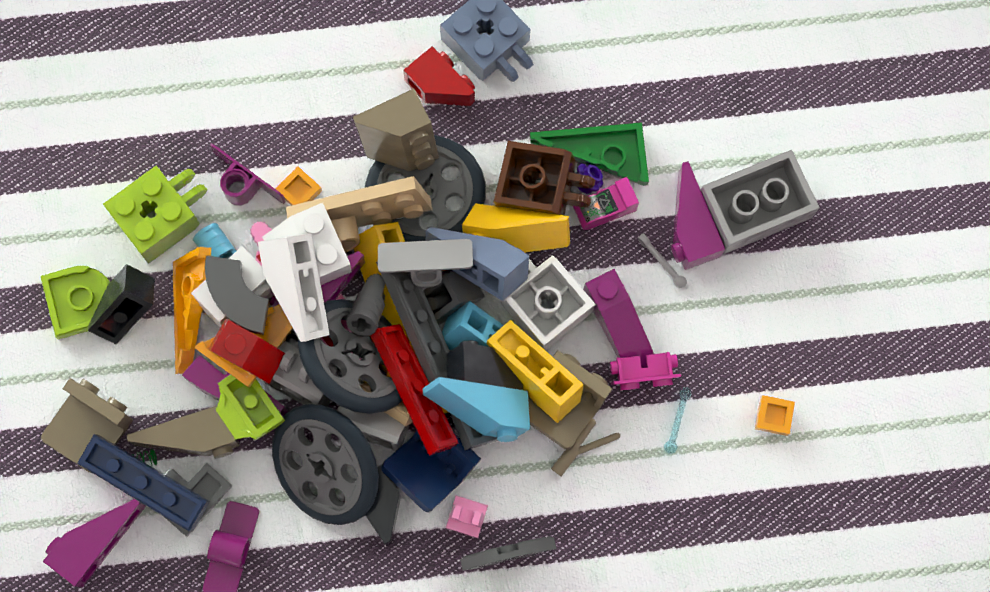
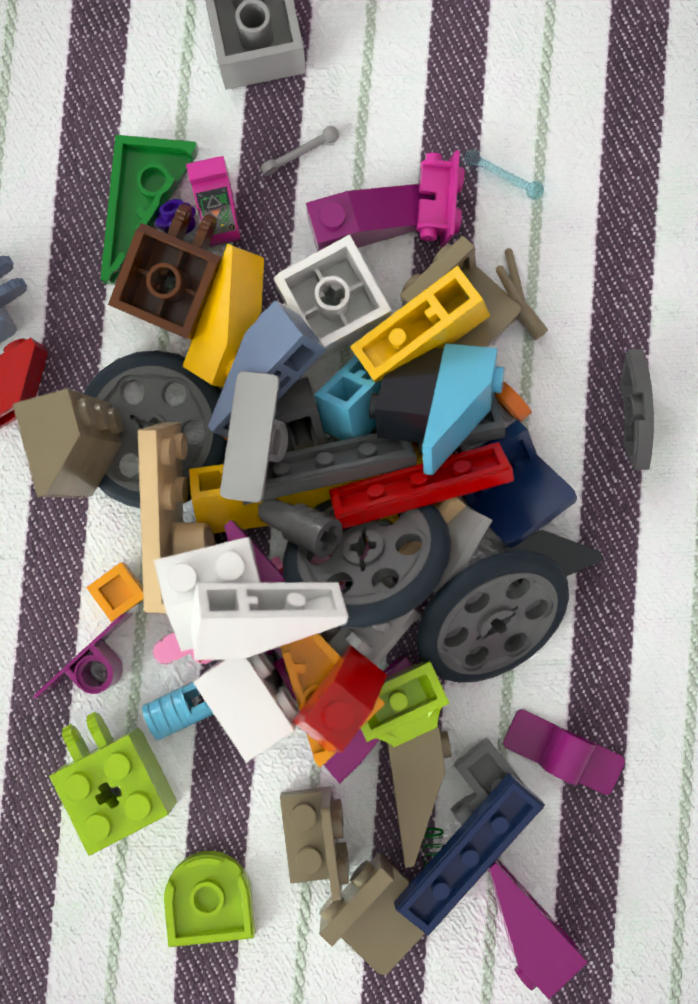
camera: 75 degrees left, 10 degrees up
(122, 304) = (228, 845): black slope -> none
(137, 367) = (311, 834): none -> dark tan bracket
(187, 276) = (214, 753): light orange wing -> none
(233, 296) = (261, 706): dark grey tile -> none
(466, 517) = (577, 453): bright pink tile -> none
(496, 456) = (513, 403): none -> orange tile
(694, 232) = (264, 98): magenta slope -> none
(774, 415) = (522, 53): light orange plate -> none

